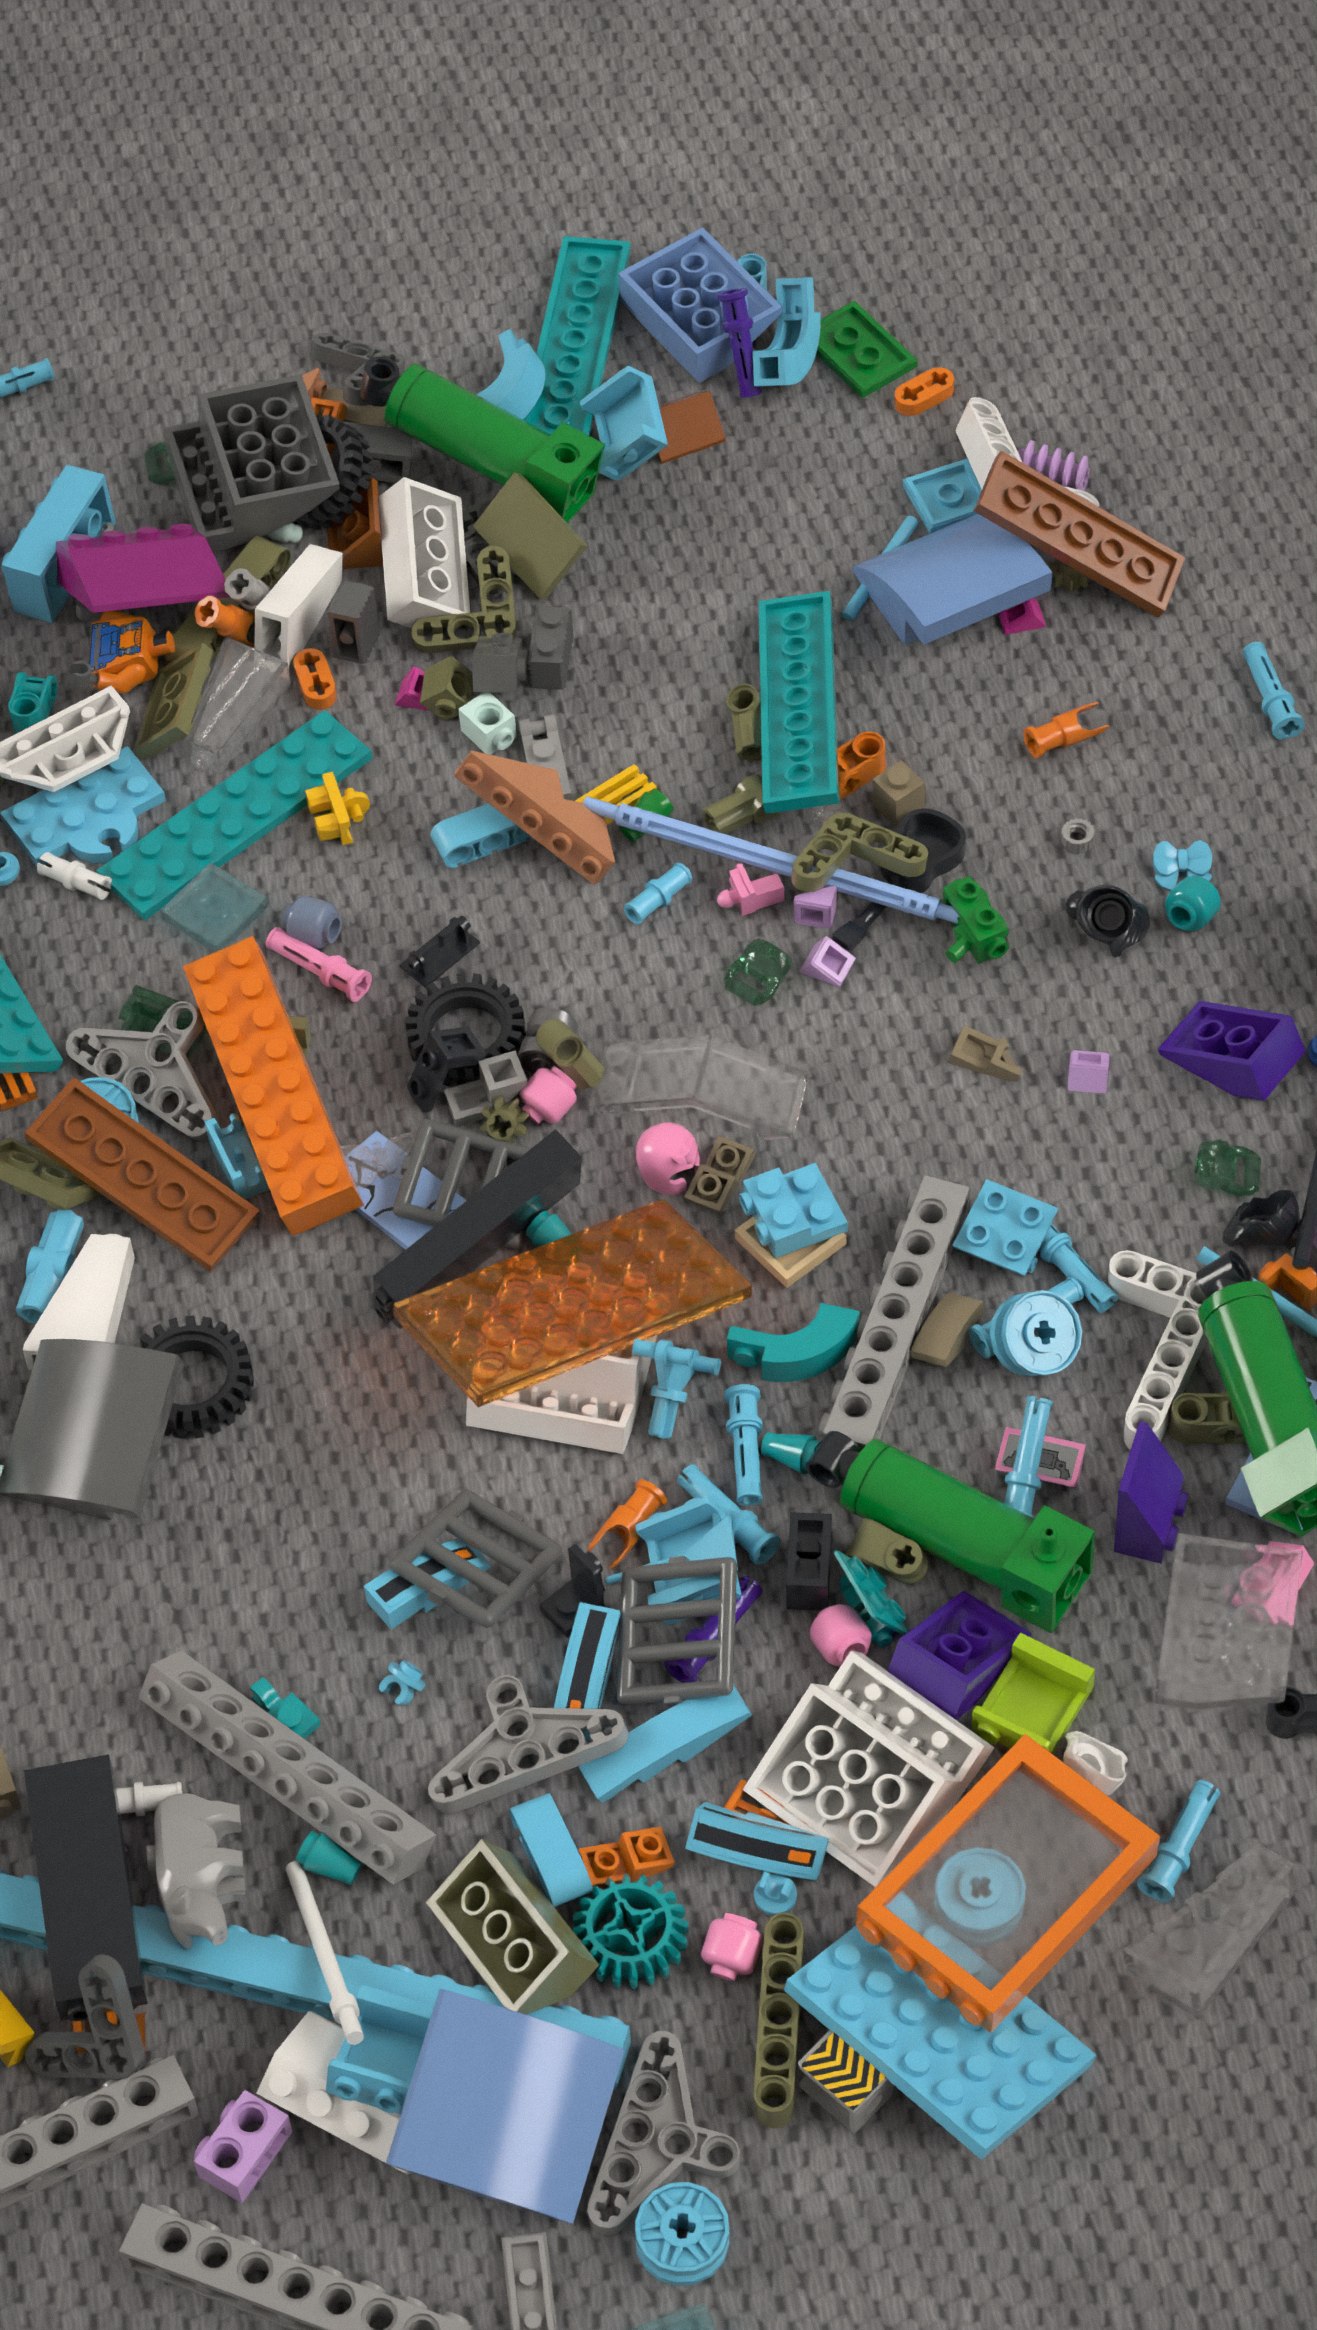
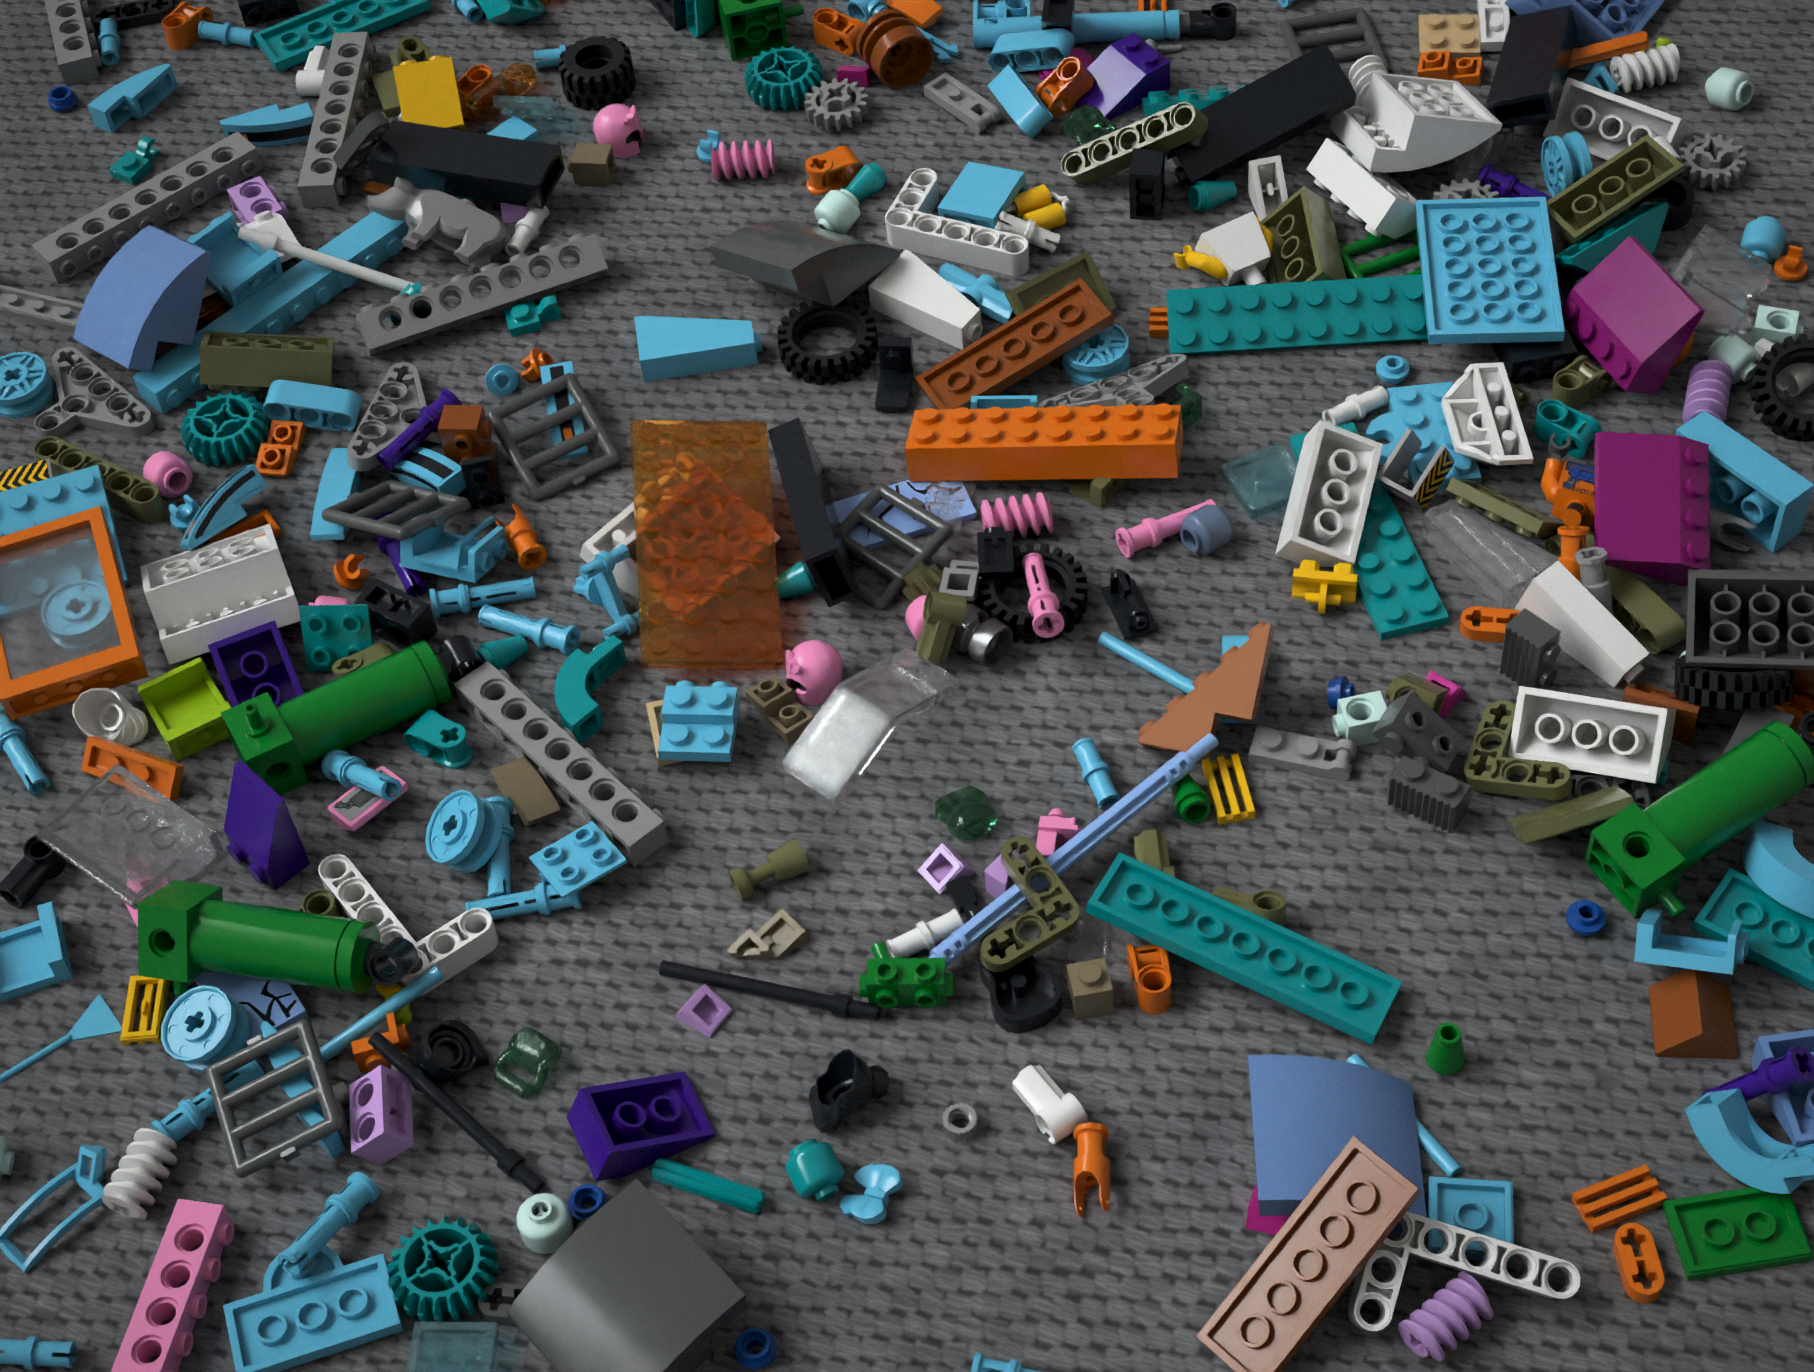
camera: 120 degrees right, 5 degrees down
(72, 2234) = (270, 126): none -> medium azure slope
(166, 765) = (1429, 480): none -> light grey piece
(221, 1288) = (895, 373): none -> black bracket
(234, 830) = (1329, 496): none -> white slope
(267, 1510) = (693, 345): none -> medium azure slope
(362, 1649) = (533, 362): none -> orange plate
(374, 1083) = (1018, 516): none -> bright pink piece
(461, 748) = (1339, 689): none -> blue plate
(498, 985) = (1035, 570): none -> bright pink pin
(502, 903) = (1146, 662): none -> medium azure bar
(523, 1684) = (426, 424): none -> dark purple pin
(533, 1630) = (466, 433): none -> dark orange brick
(617, 516) = (1585, 926): none -> blue plate
(769, 1660) = (348, 574): none -> orange plate
(810, 550) = (1446, 1050): none -> green cone
(877, 414) = (1612, 1184): none -> orange tile
(904, 1078) = (782, 863): none -> olive piece
(911, 939) = (925, 935): none -> white pin
(932, 1439) = (439, 740): none -> teal piece
(1020, 972) = (839, 1004): none -> black bar
(1025, 777) = (1052, 1109): none -> white piece
(1135, 1705) = (155, 771): none -> orange plate
(1249, 970) = (708, 1185): none -> teal axle

